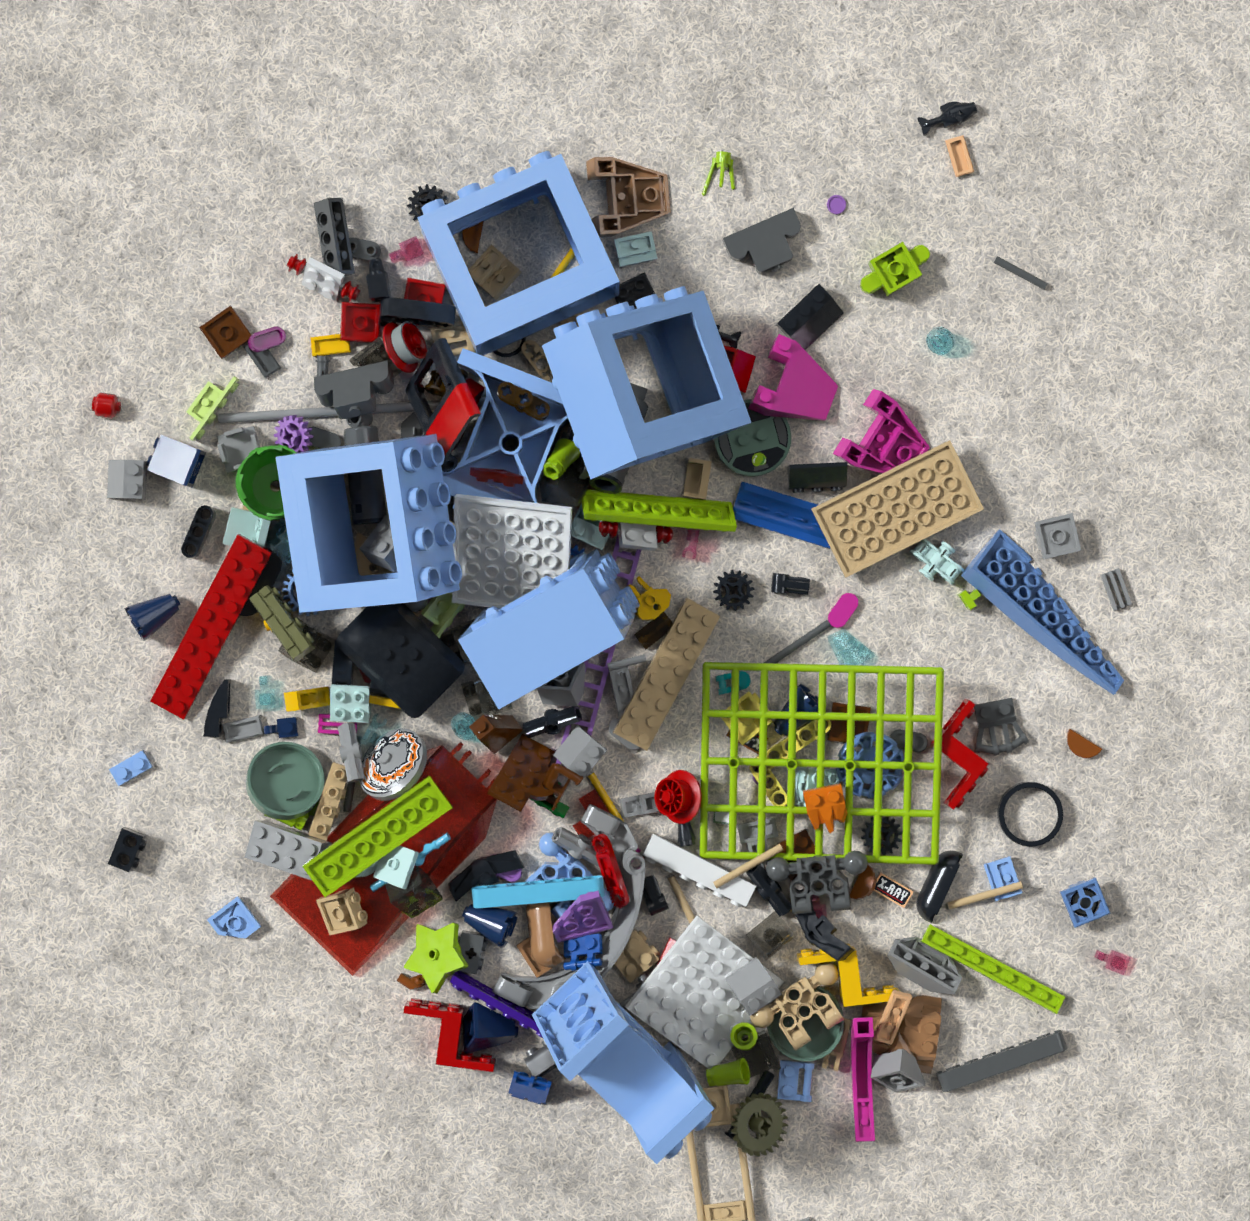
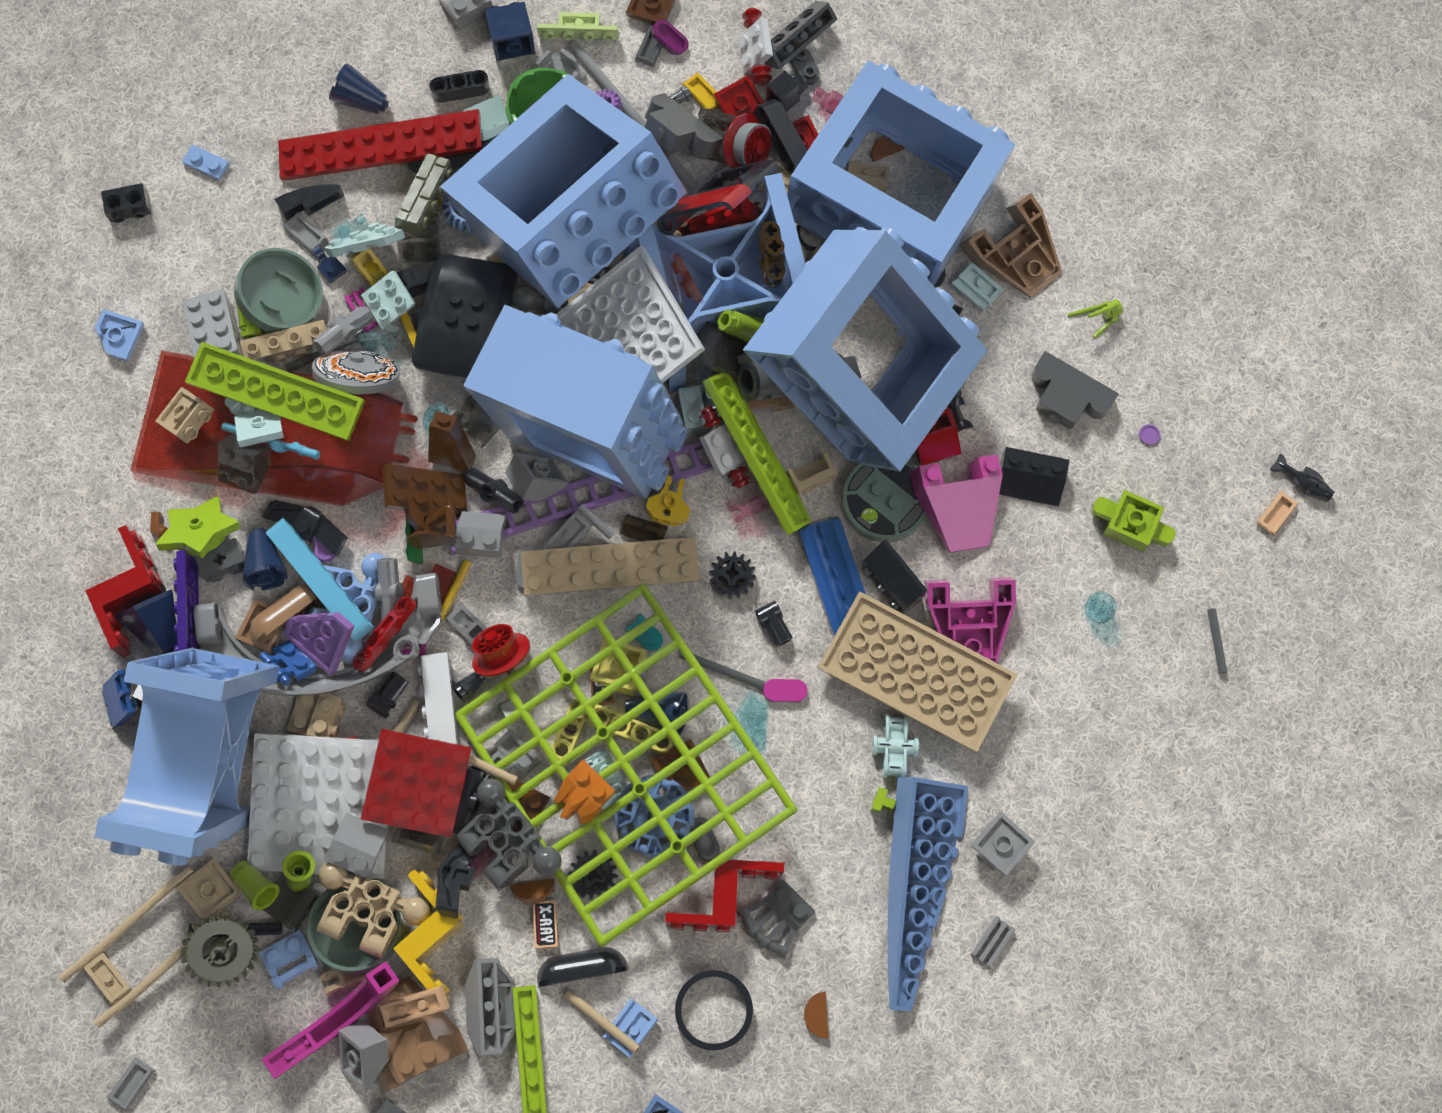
camera: 50 degrees right, 15 degrees down
(286, 689) = (358, 241): none -> light aqua plate
(738, 917) = (415, 783): none -> red plate

